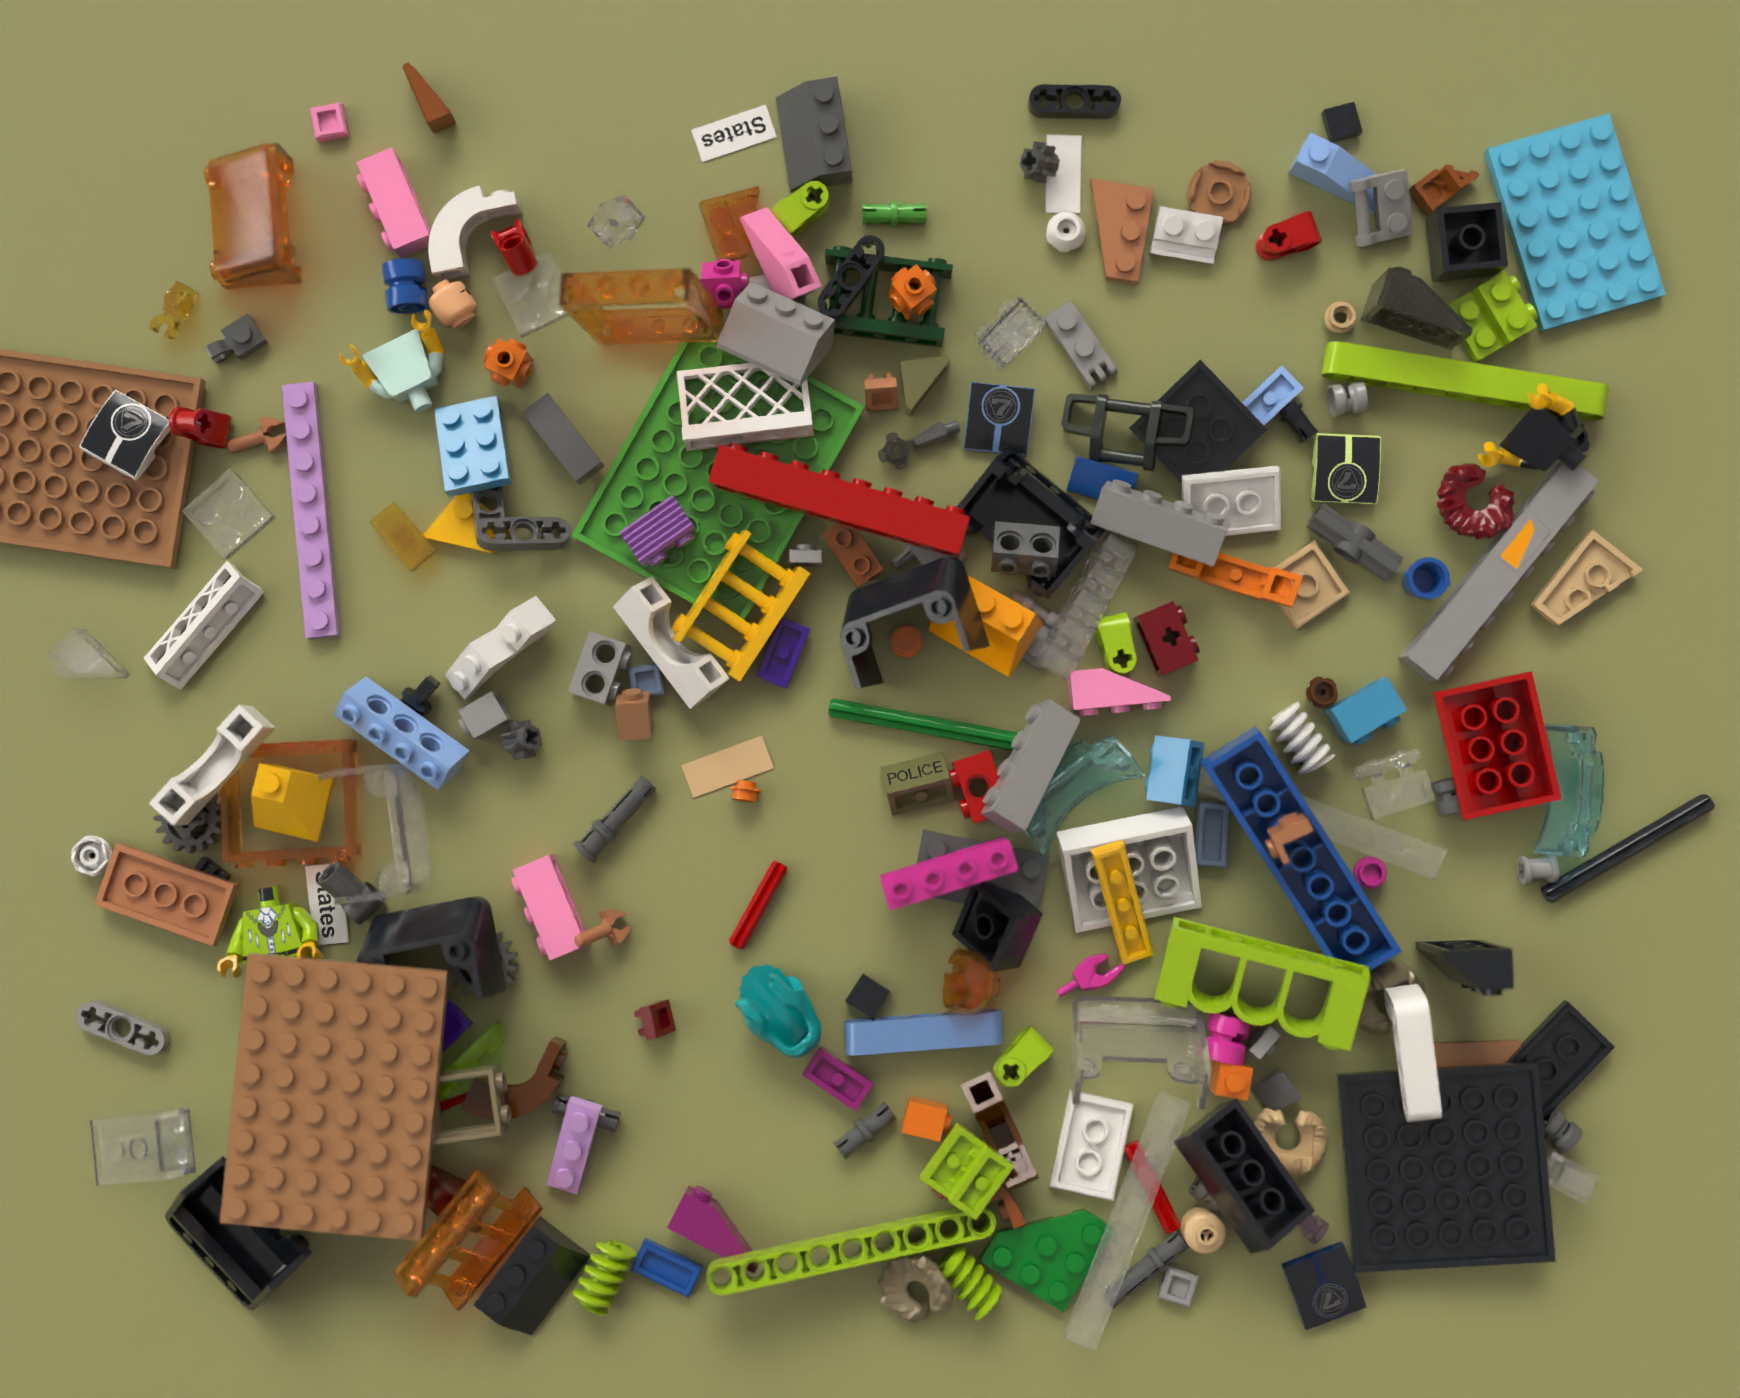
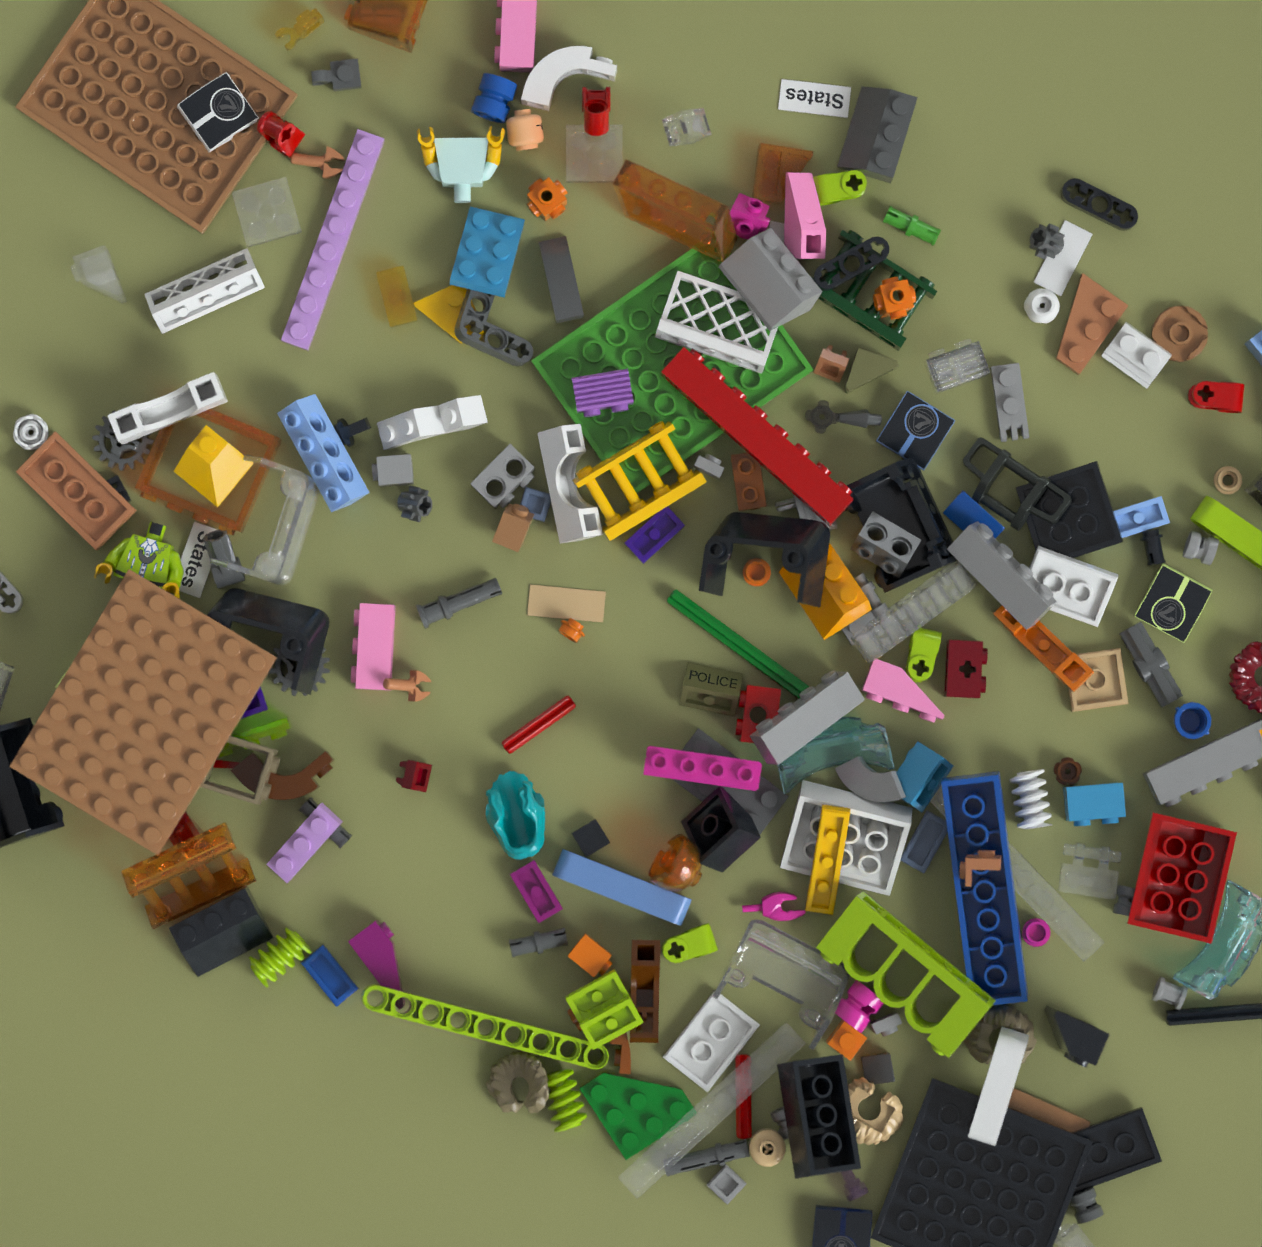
camera: 15 degrees right, 0 degrees up
(1127, 803) = (869, 783): none -> light grey tile

